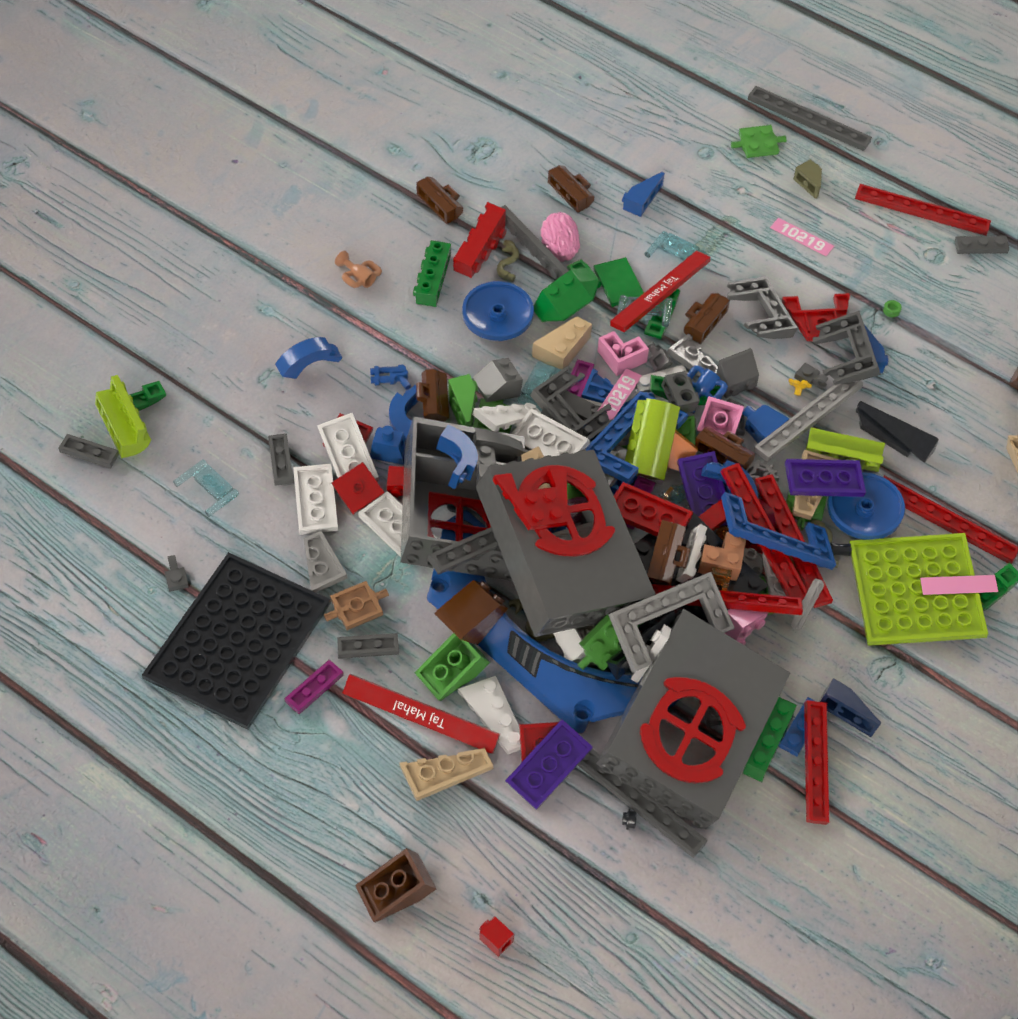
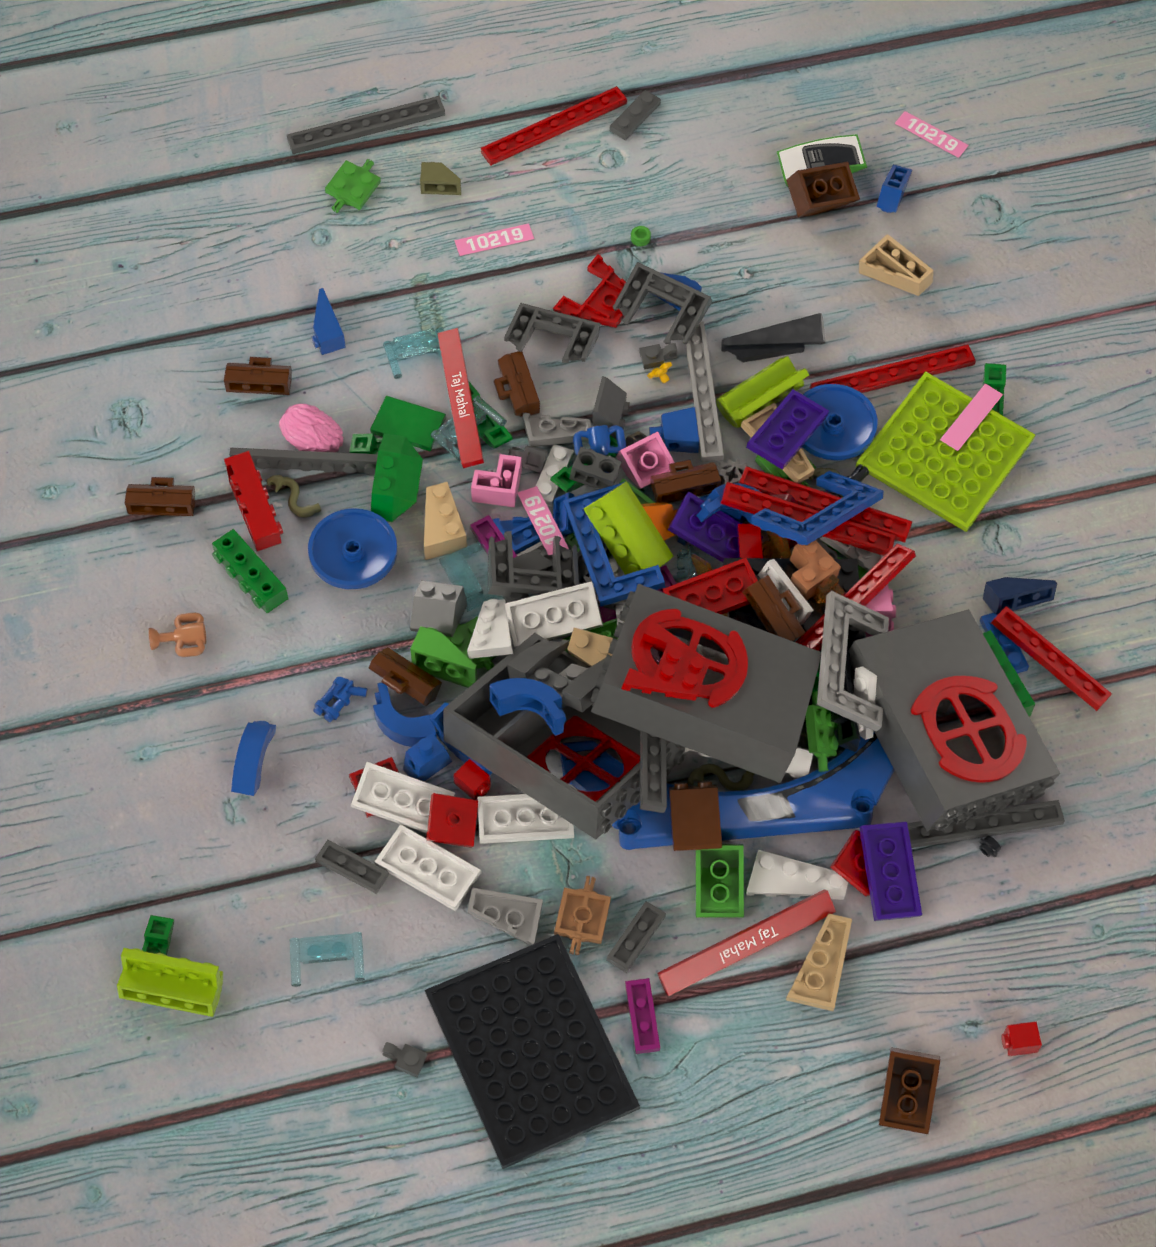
camera: 50 degrees left, 5 degrees up
(88, 451) = (178, 1042): dark grey plate -> none
(808, 603) = (900, 534): light grey axle -> none

